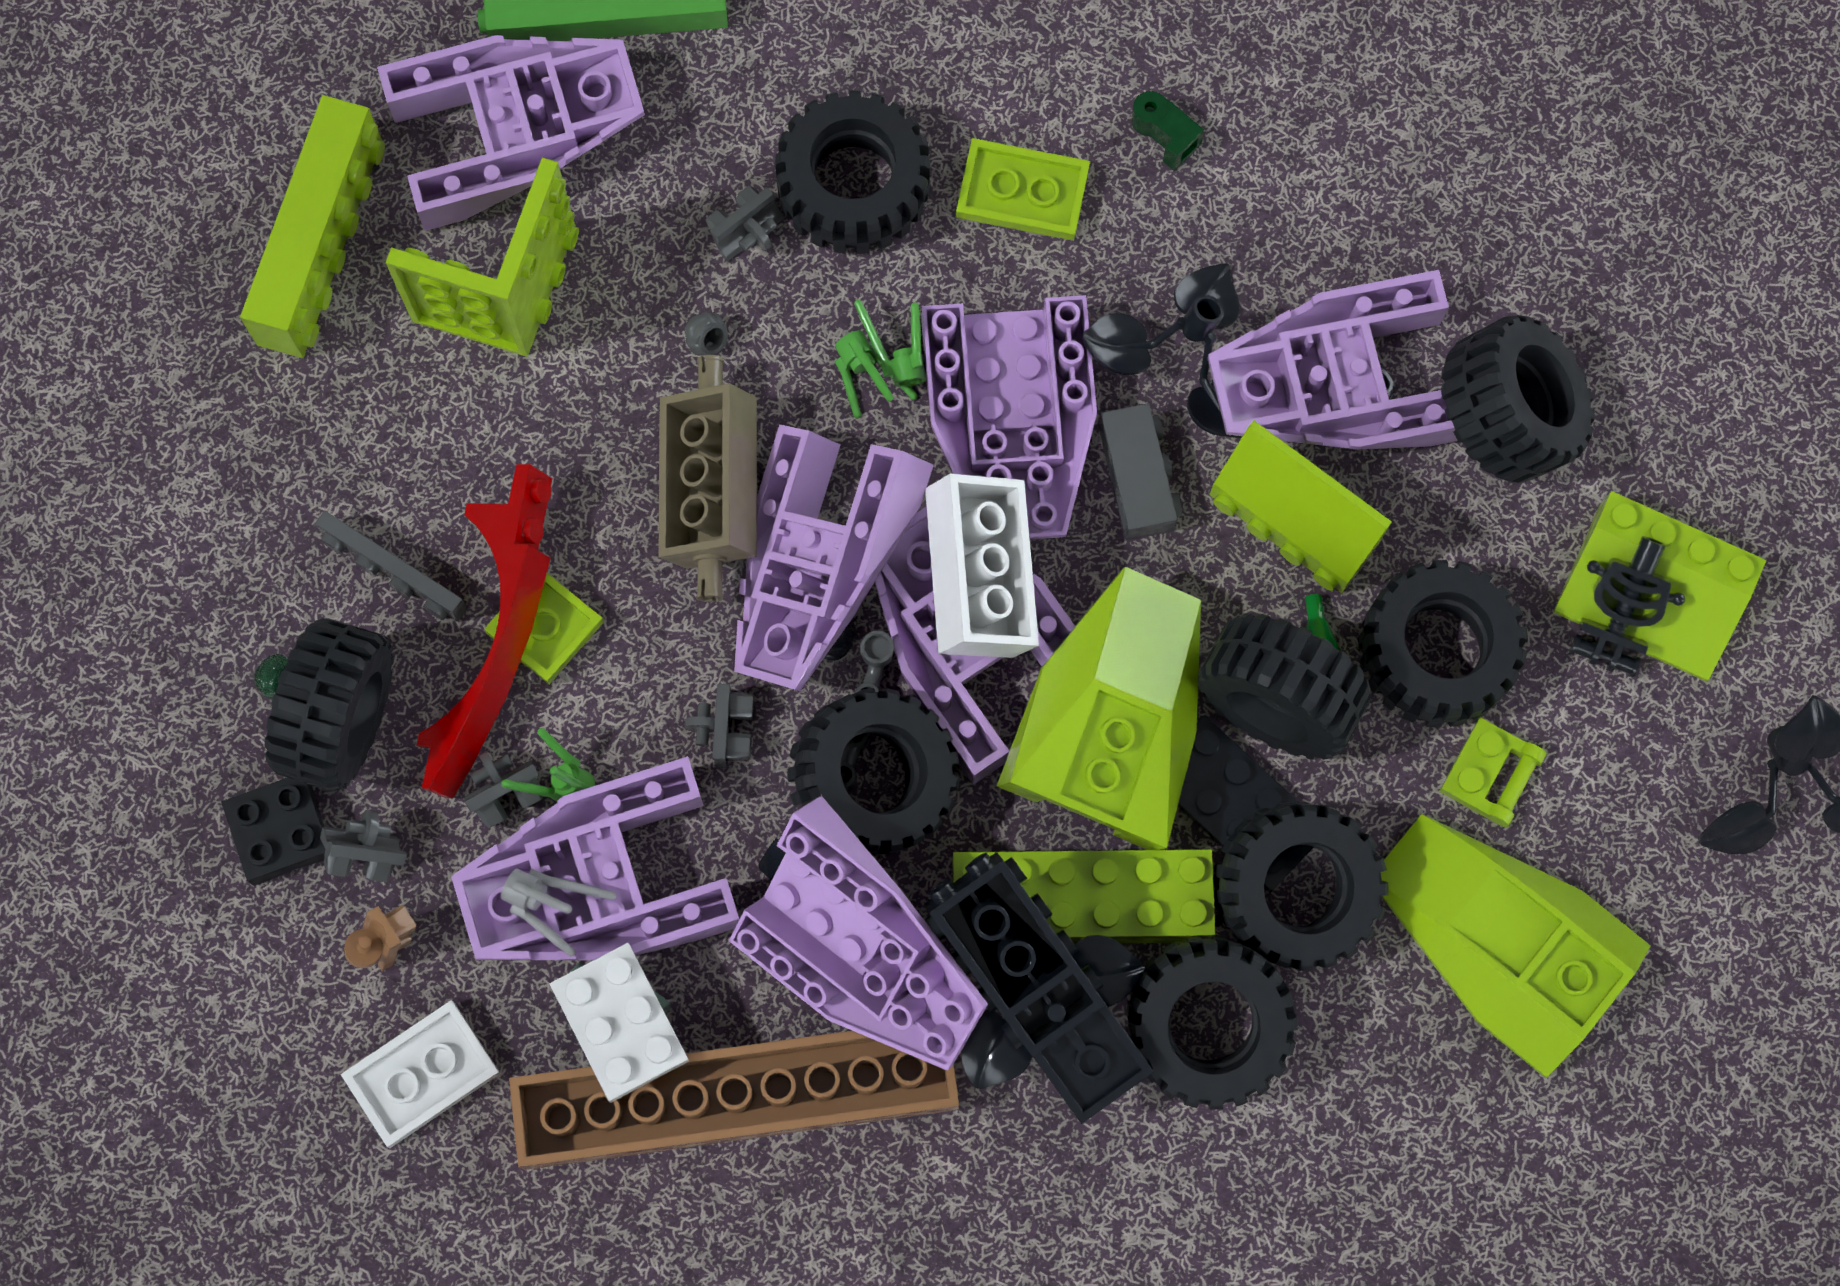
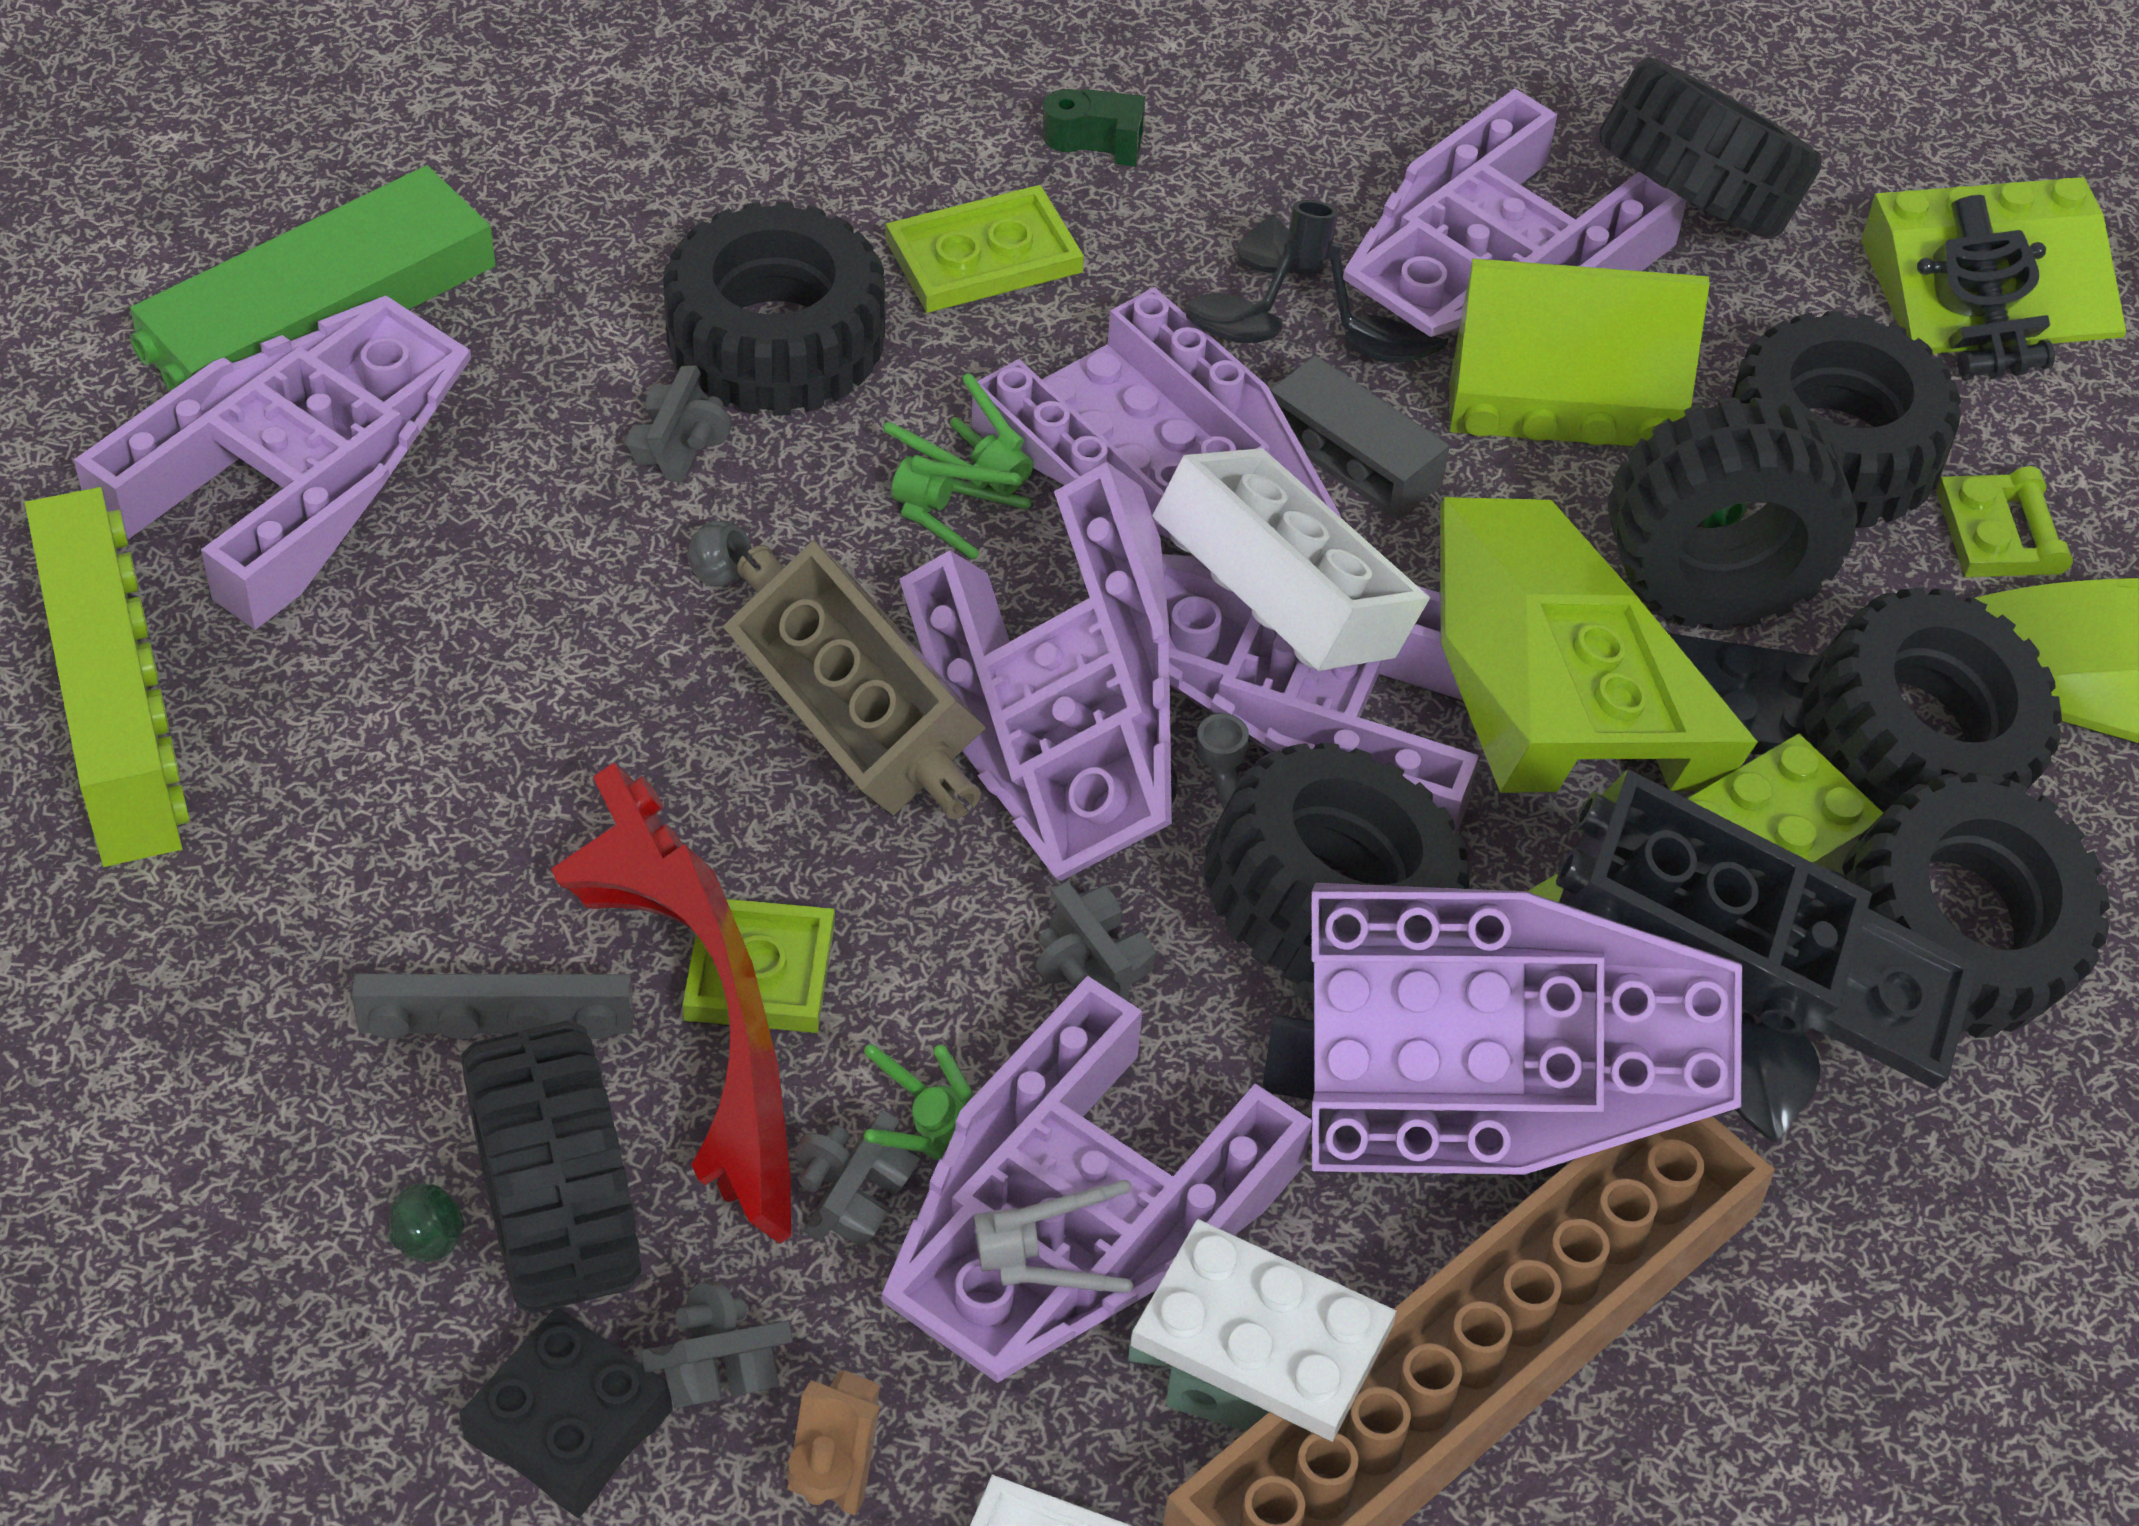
camera: 35 degrees left, 25 degrees down
(503, 309) = (397, 612): lime bracket -> none

